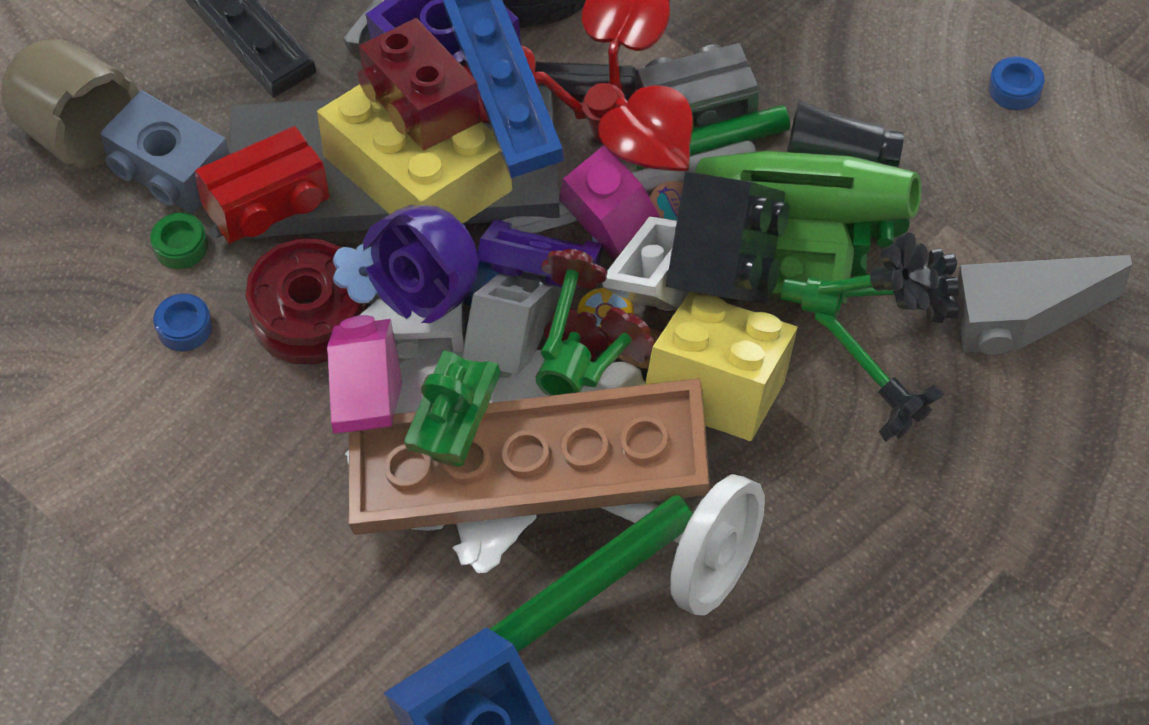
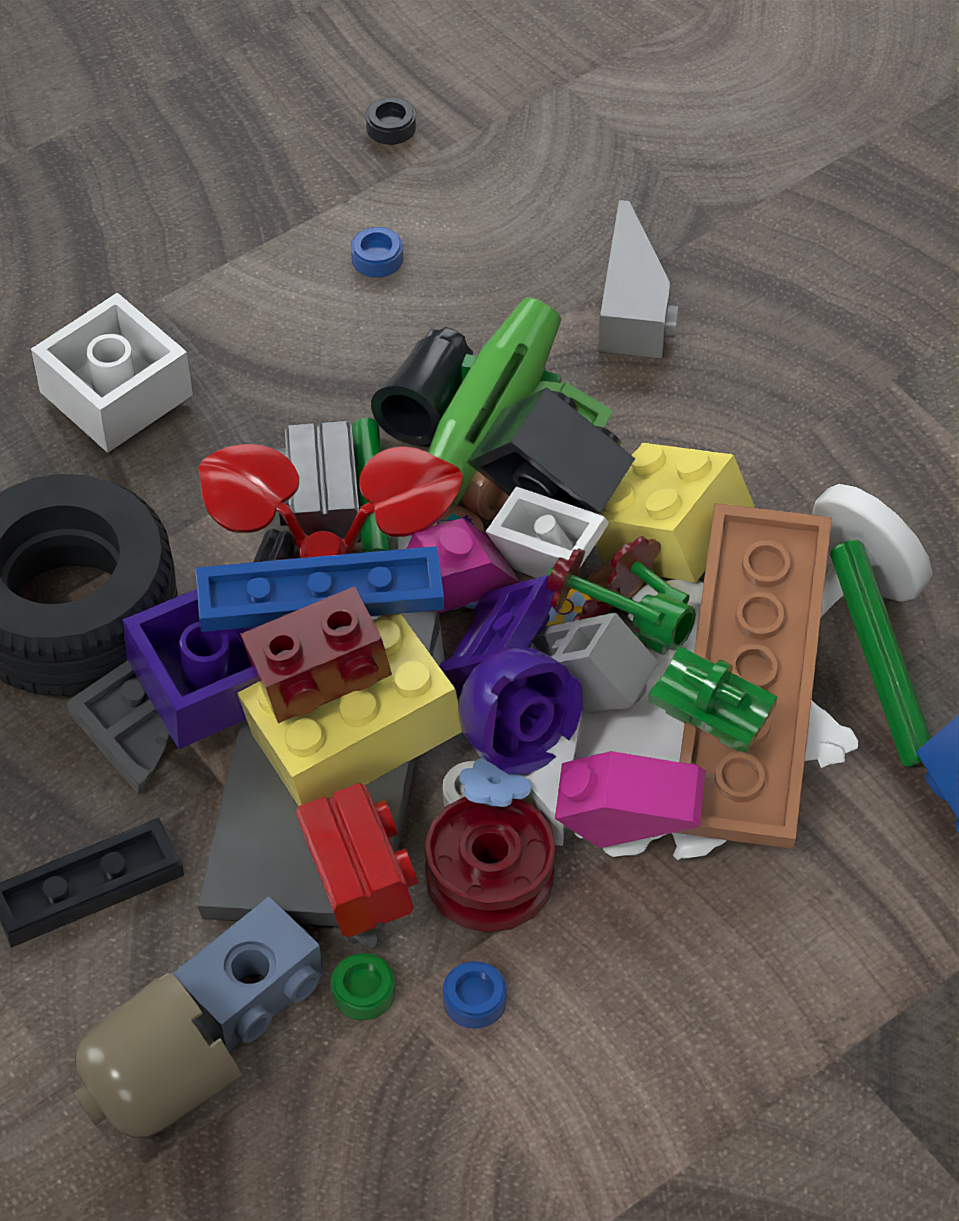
camera: 80 degrees left, 5 degrees down
(915, 288) = (612, 346): black plant -> none

